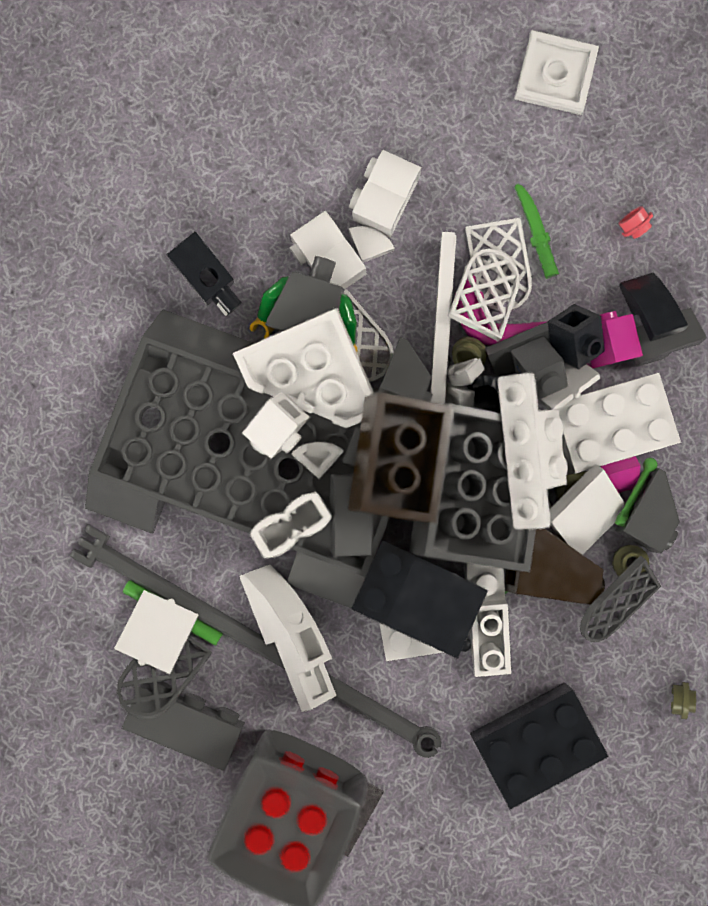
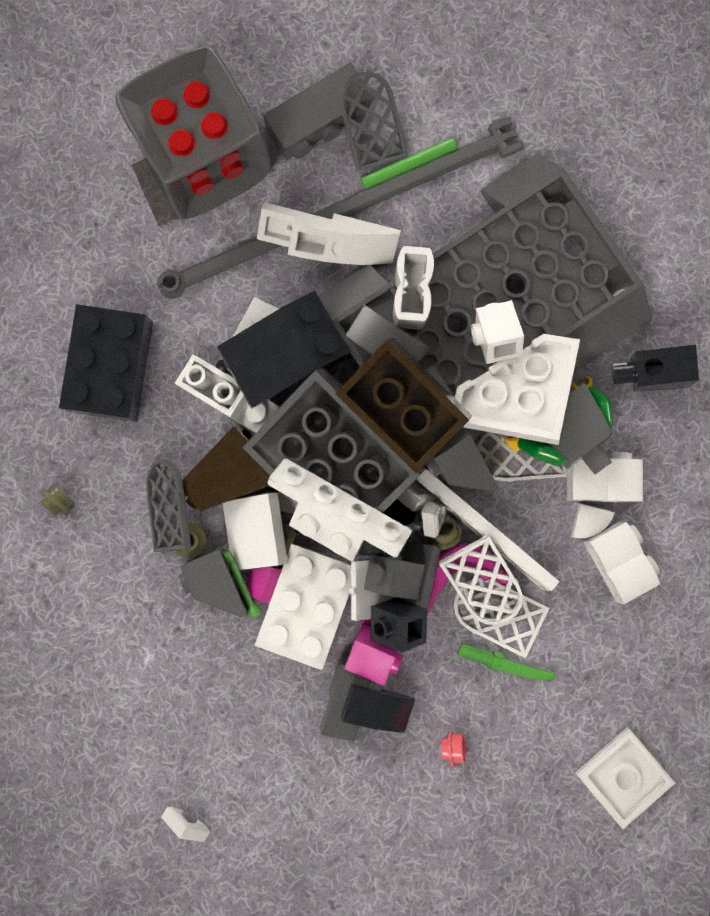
camera: 125 degrees right, 0 degrees up
(156, 632) = (403, 138): white piece -> none
(317, 456) = (450, 349): white tile -> none

